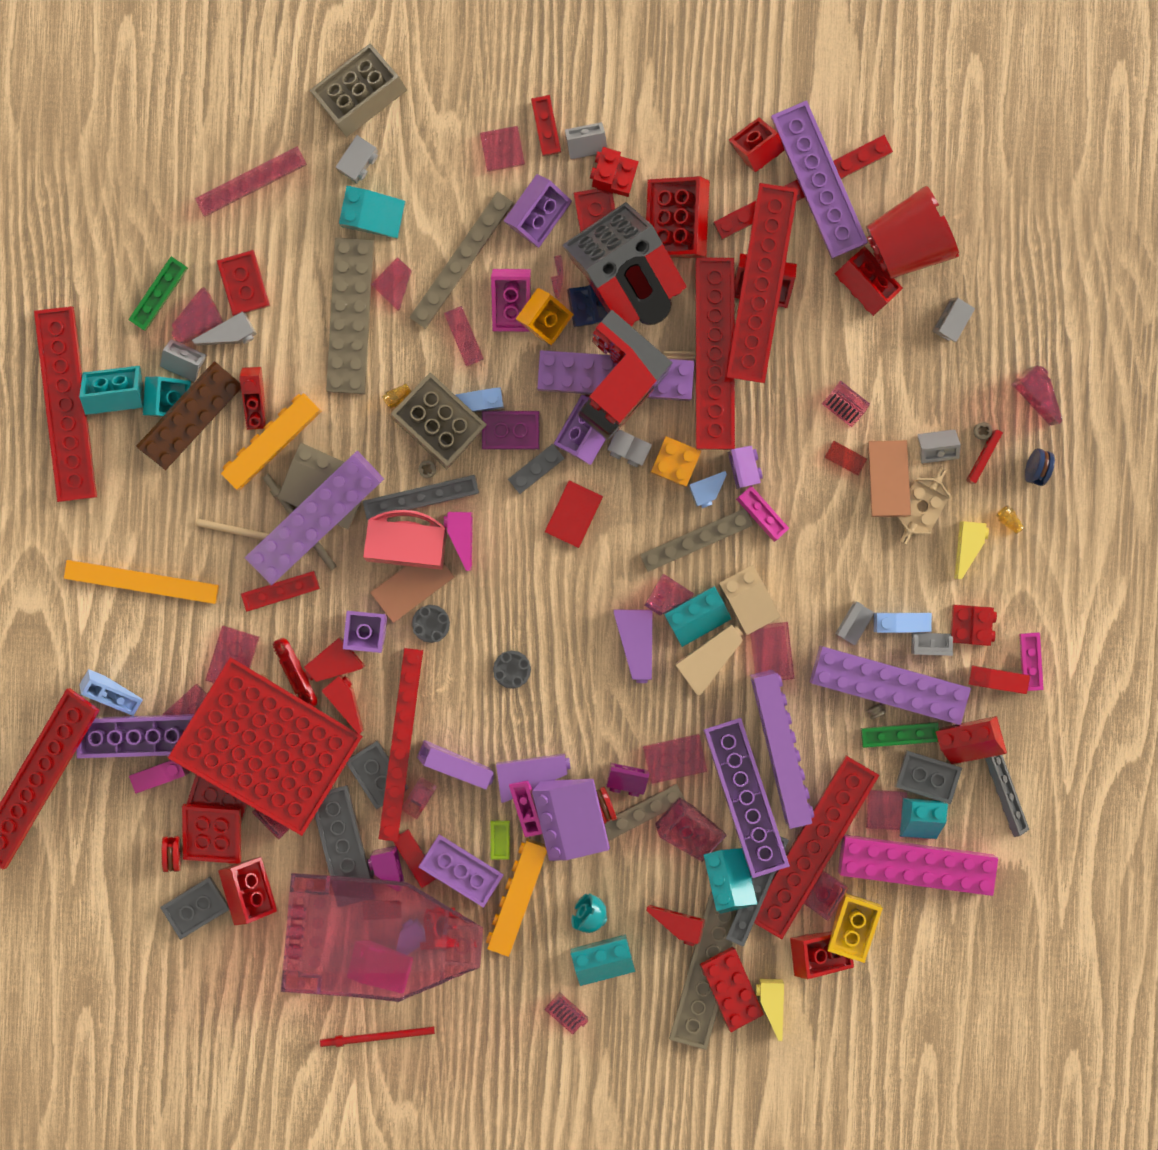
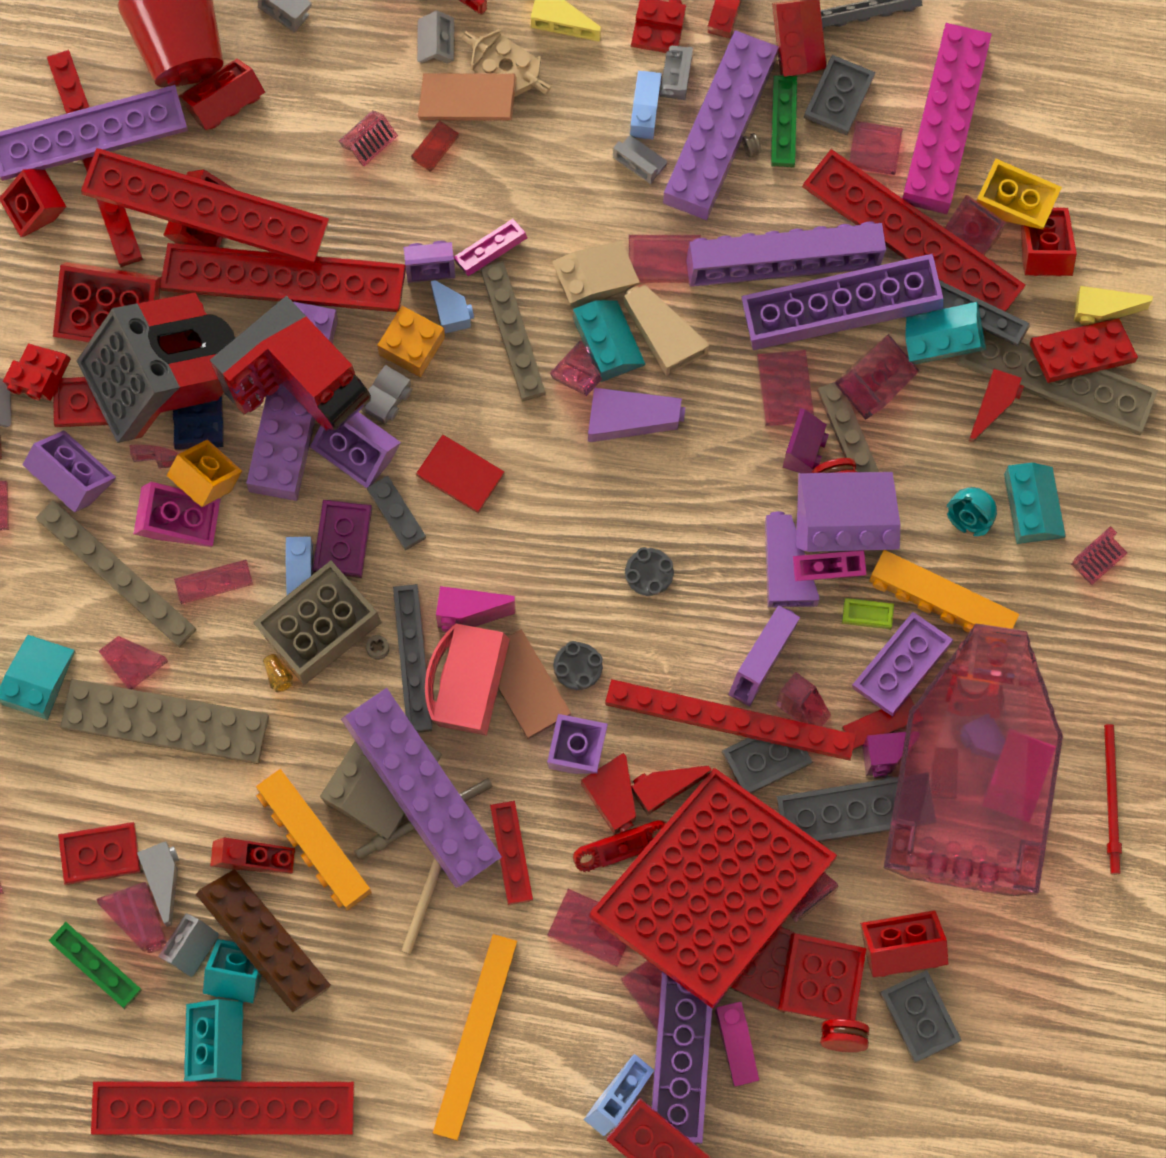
camera: 85 degrees left, 15 degrees down
(923, 818) = (889, 104): teal slope -> none

